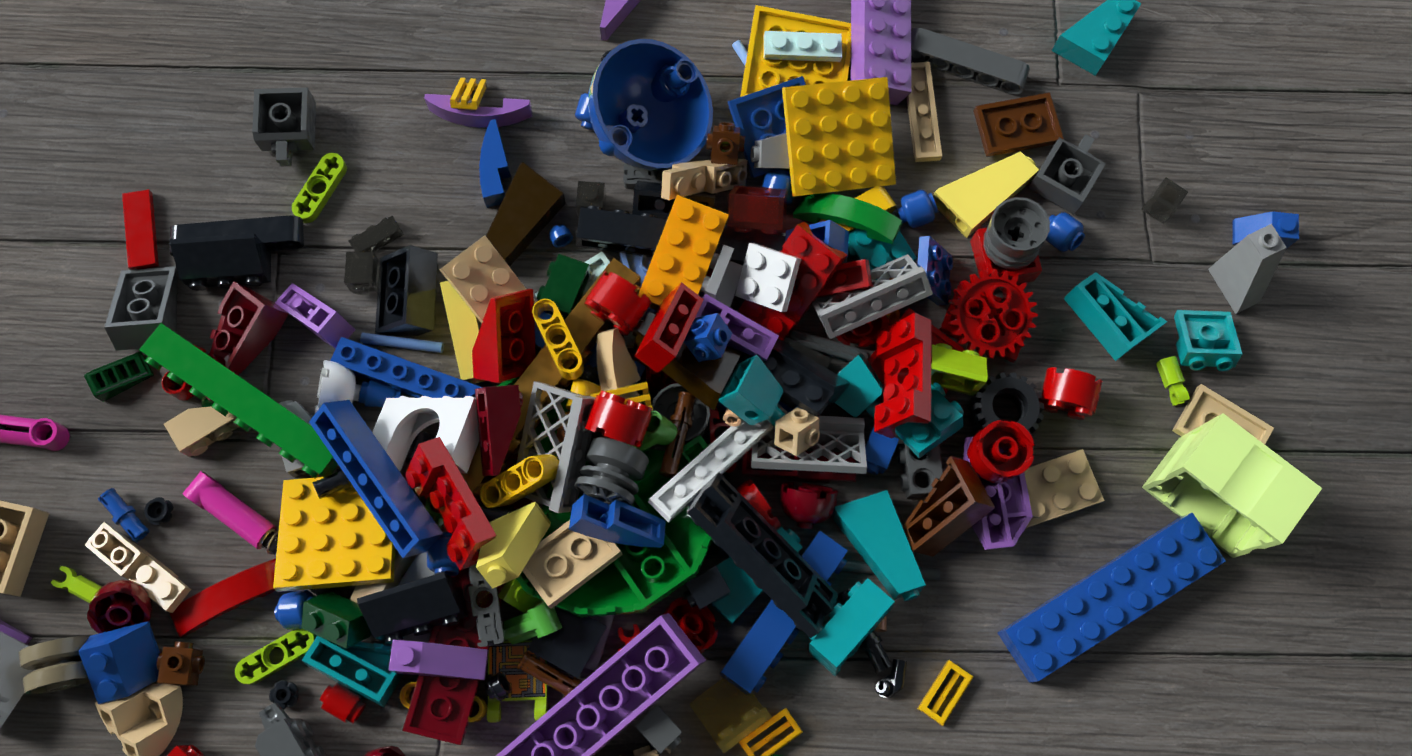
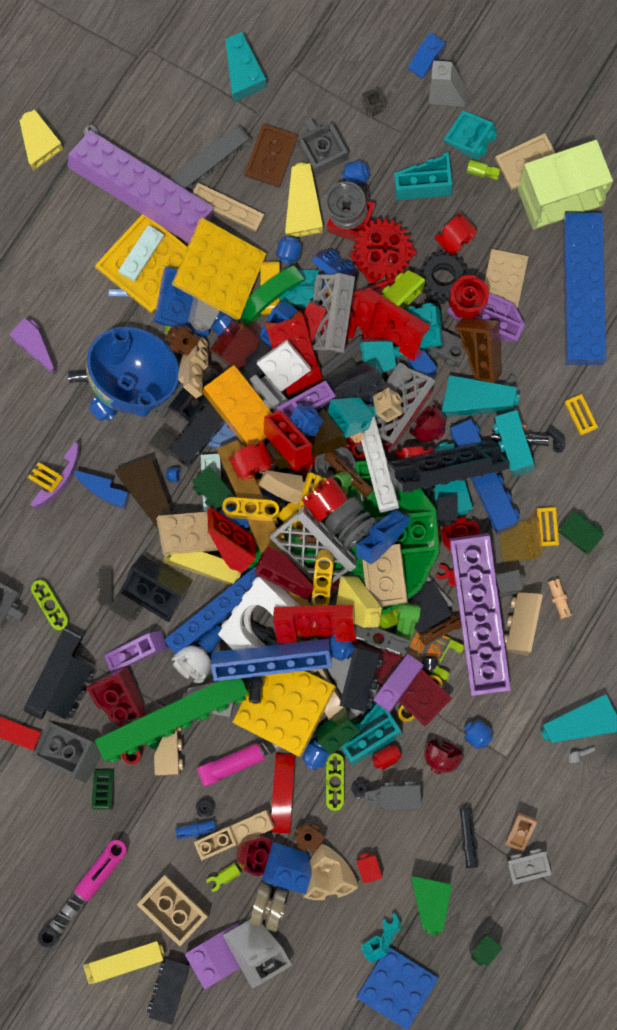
camera: 50 degrees left, 5 degrees up
(400, 342) = (184, 608): medium blue bar -> none

